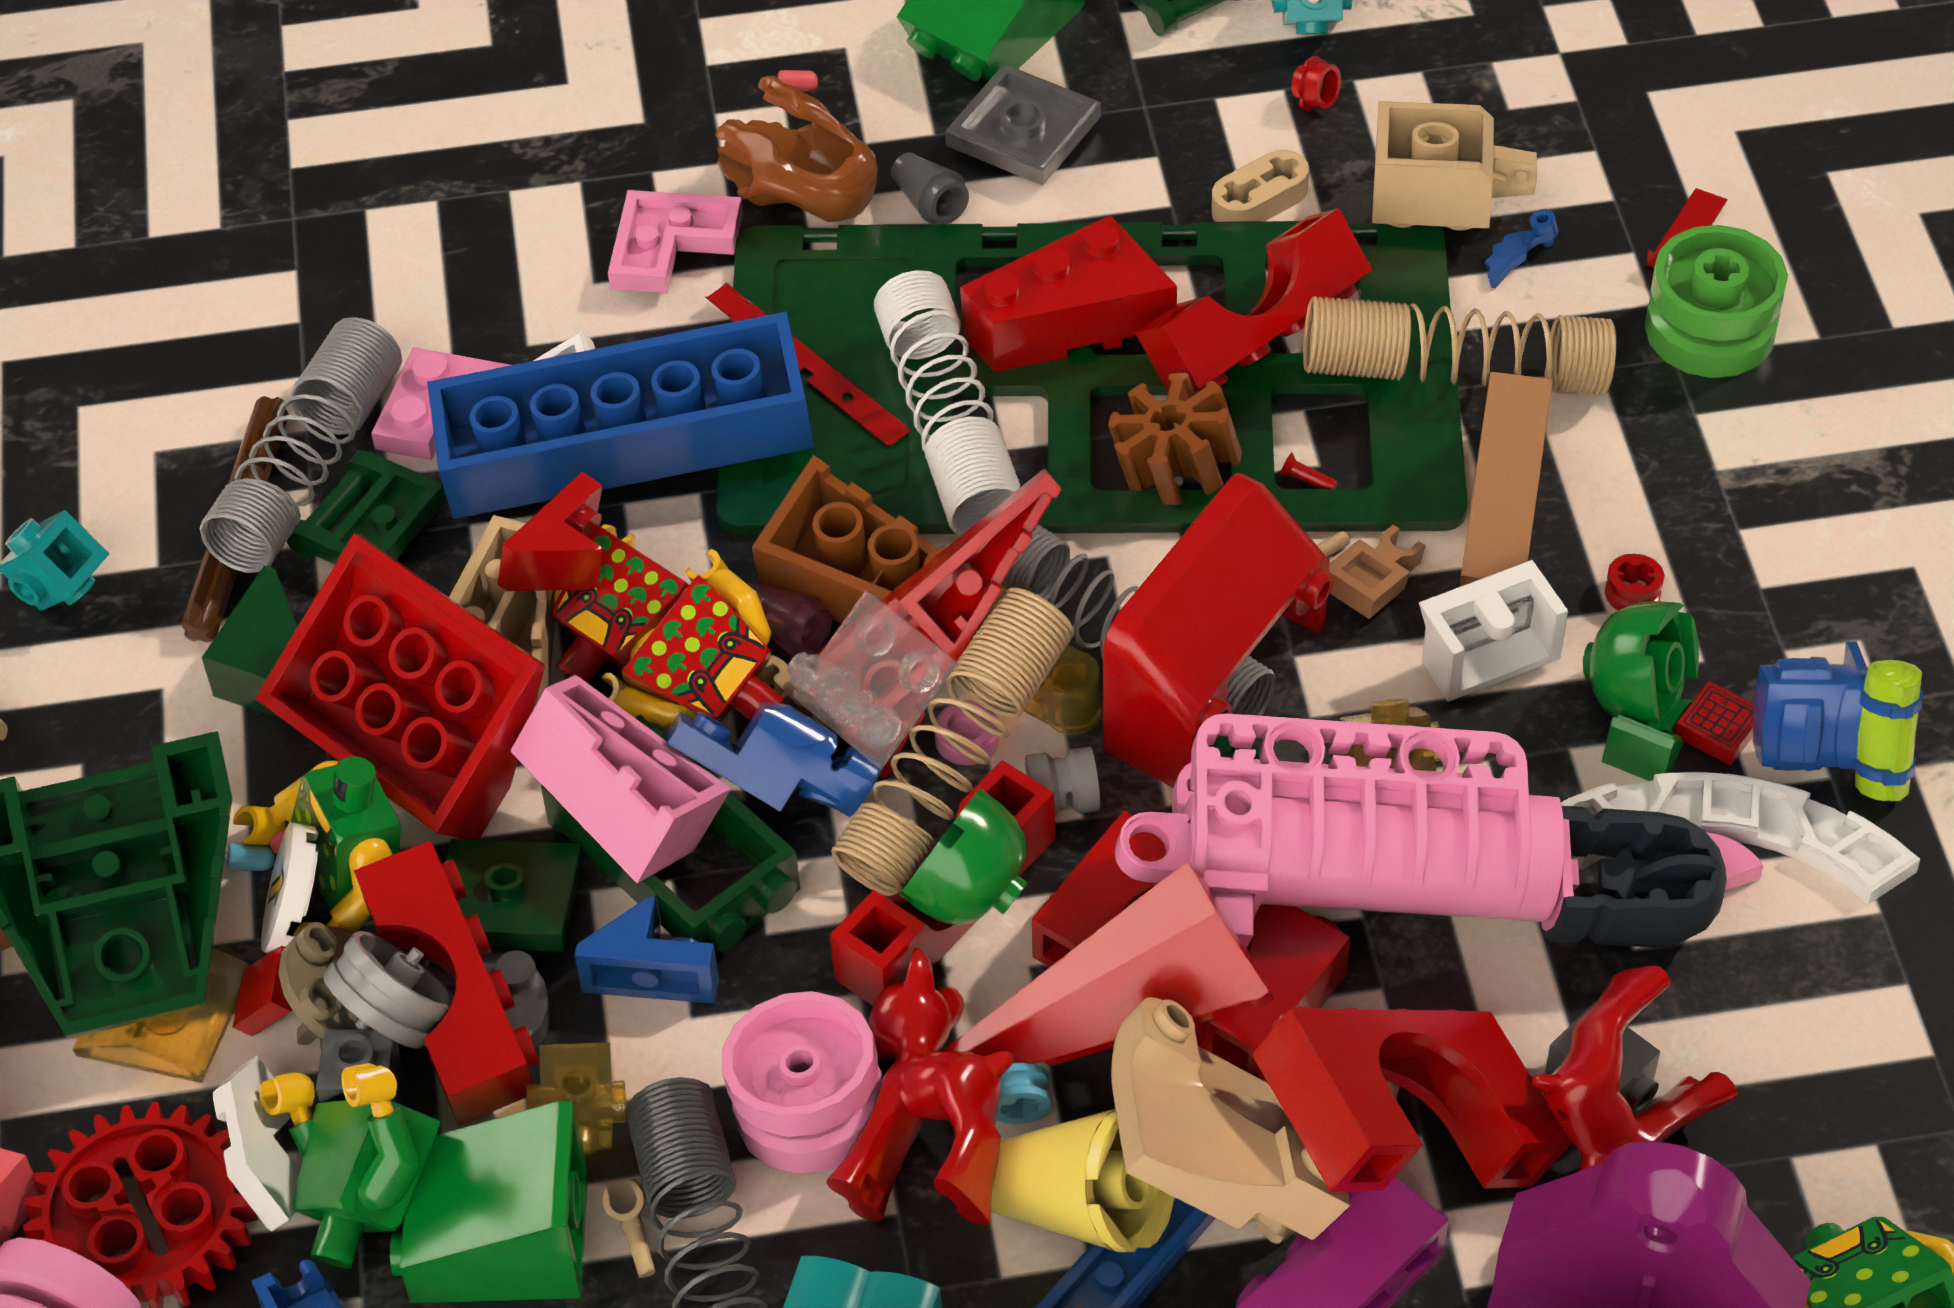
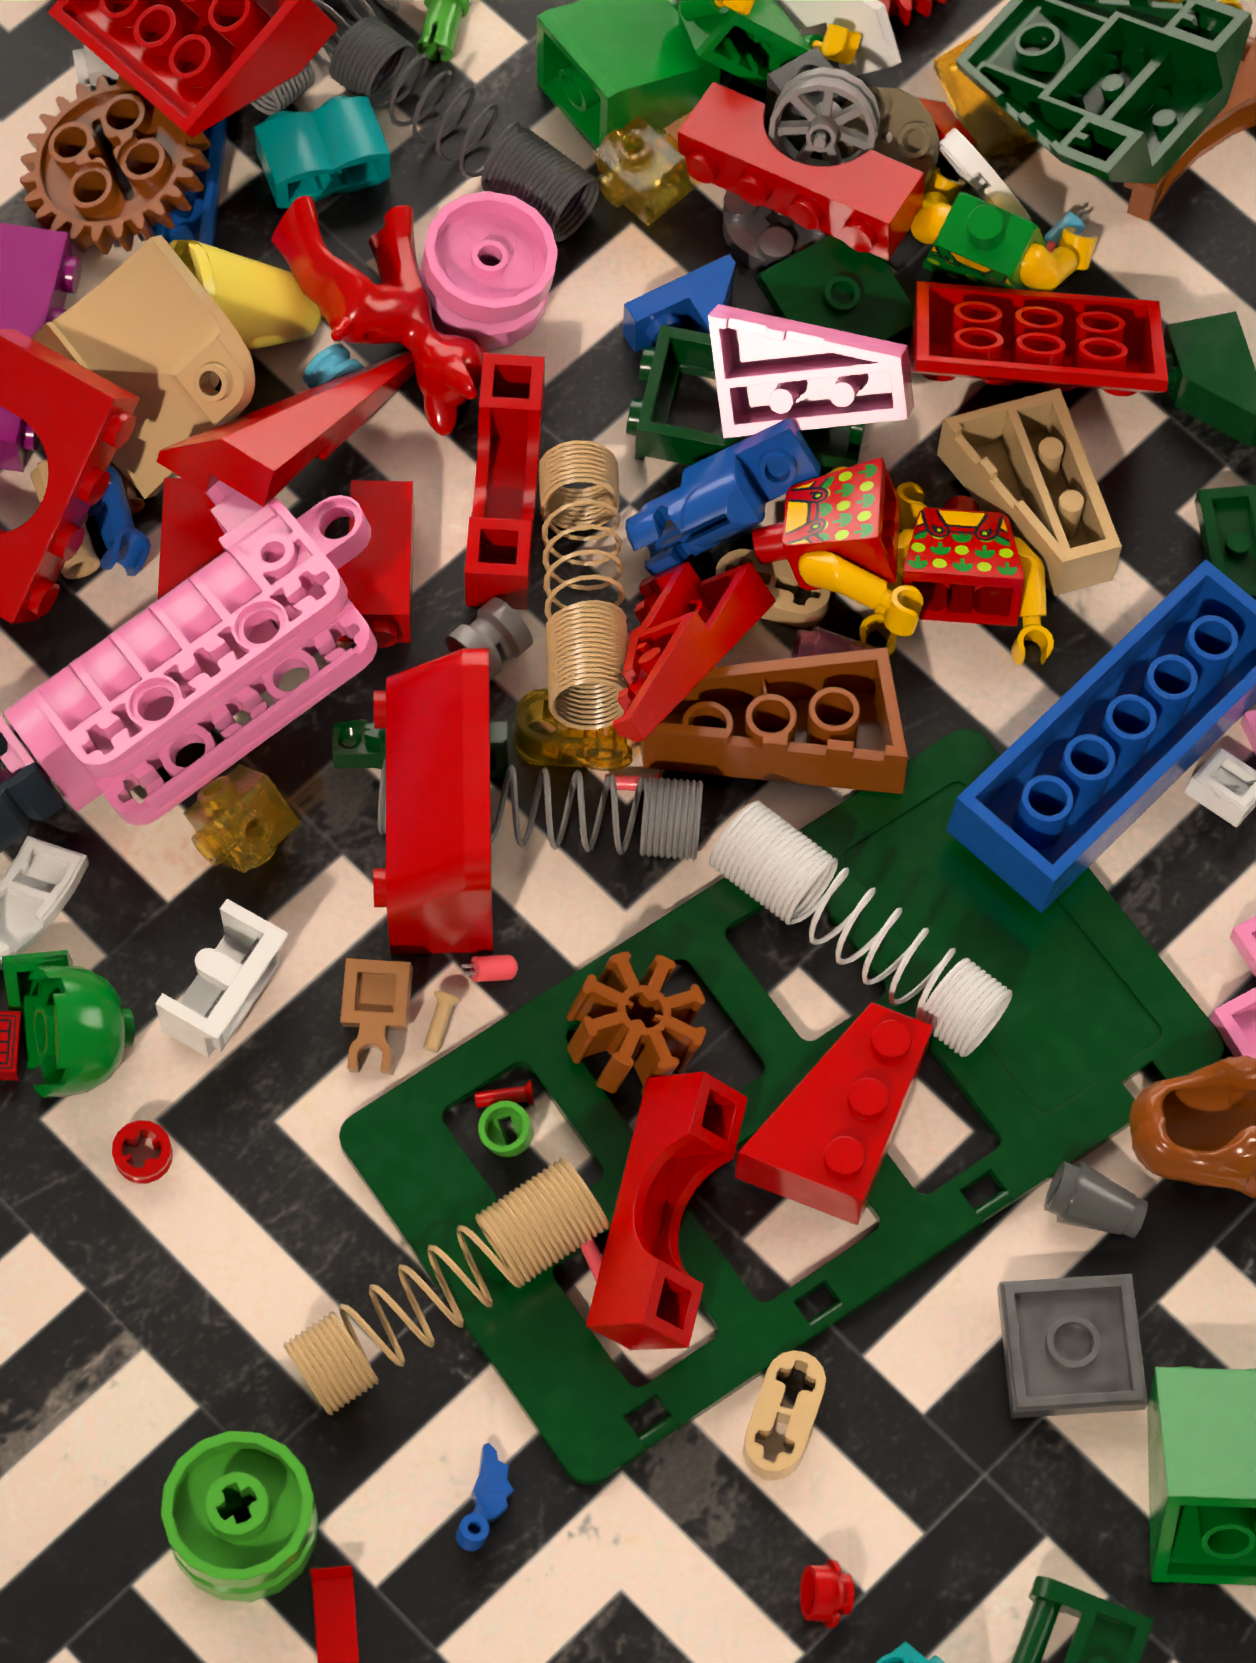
camera: 140 degrees right, 15 degrees up
(556, 543) = (1028, 514): red slope -> none
(632, 1228) = (553, 131): tan hand -> none
(824, 377) = (1046, 935): red piece -> none
(871, 679) = (679, 569): clear hinge -> none
(971, 865) = (482, 464): green cylinder -> none
(1333, 426) = (494, 1135): none -> bright green hinge
(1442, 166) = (571, 1523): tan hinge -> none
(1506, 475) = (305, 1152): medium nougat slope -> none

